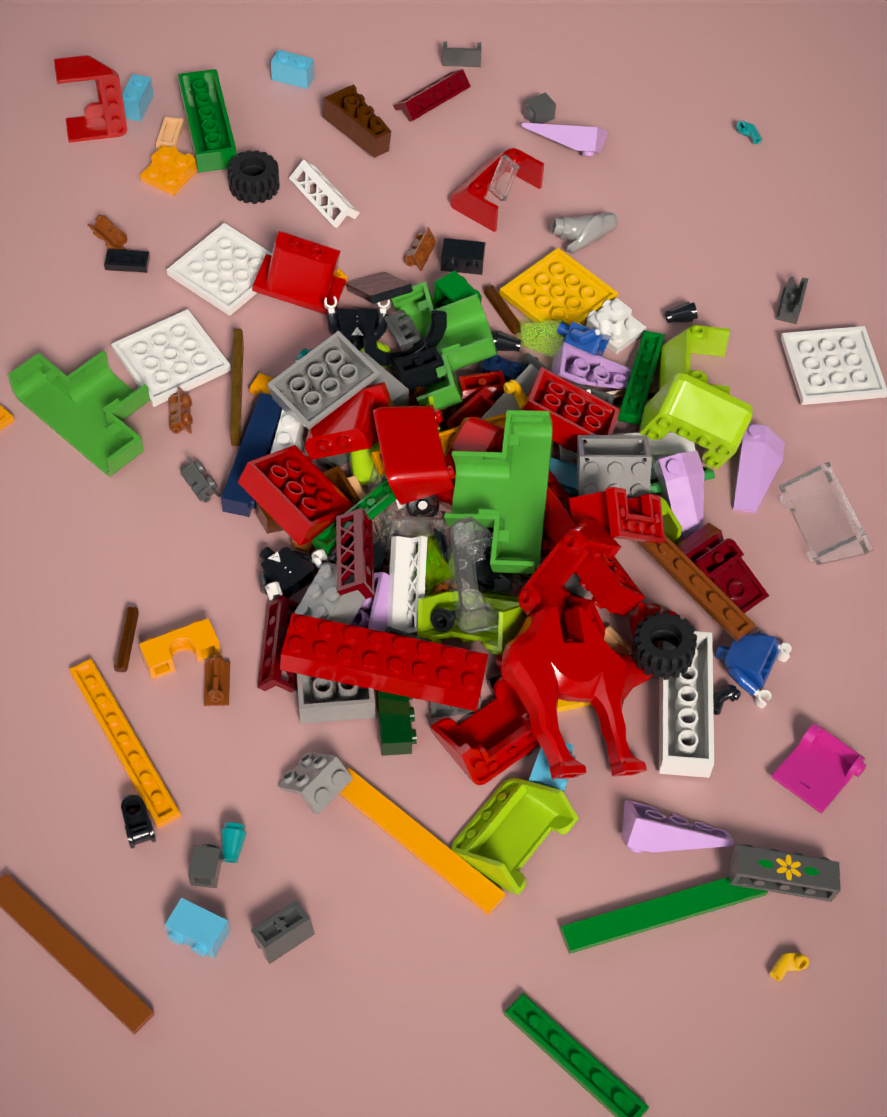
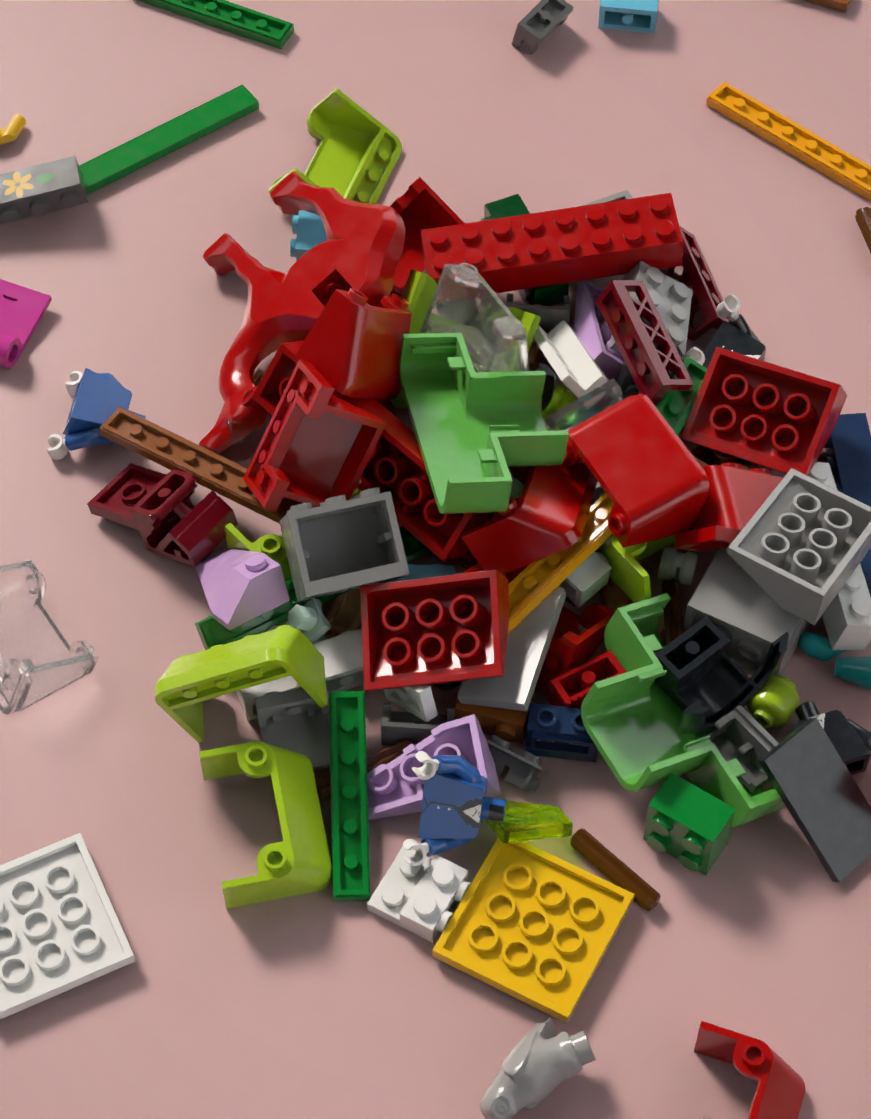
camera: 165 degrees right, 0 degrees up
(138, 825) = (745, 74): black piece -> none
(197, 637) = (792, 259): light orange arch -> none
(205, 866) = (650, 55): dark grey brick -> none
(217, 682) = (742, 225): dark orange hinge -> none
(232, 841) = (636, 86): teal cone -> none
(316, 780) = (581, 148): light grey bracket -> none
(421, 249) = (799, 931): dark orange hinge -> none
(422, 844) = (465, 147): light orange tile -> none
(462, 256) = (723, 946): black brick -> none
(505, 342) = (588, 799): black cone -> none
(518, 393) = (526, 638): yellow arm -> none
(653, 832) = (169, 211): lavender wedge -> none
(669, 629) = (207, 328): black tyre -> none
(683, 313) = (312, 951): black cone -> none
(687, 715) = (172, 338): white brick -> none
(728, 692) = (130, 371): black arm -> none
(757, 464) = (132, 721): lavender wedge -> none
(792, 301) = (126, 1040): dark grey hinge -> none

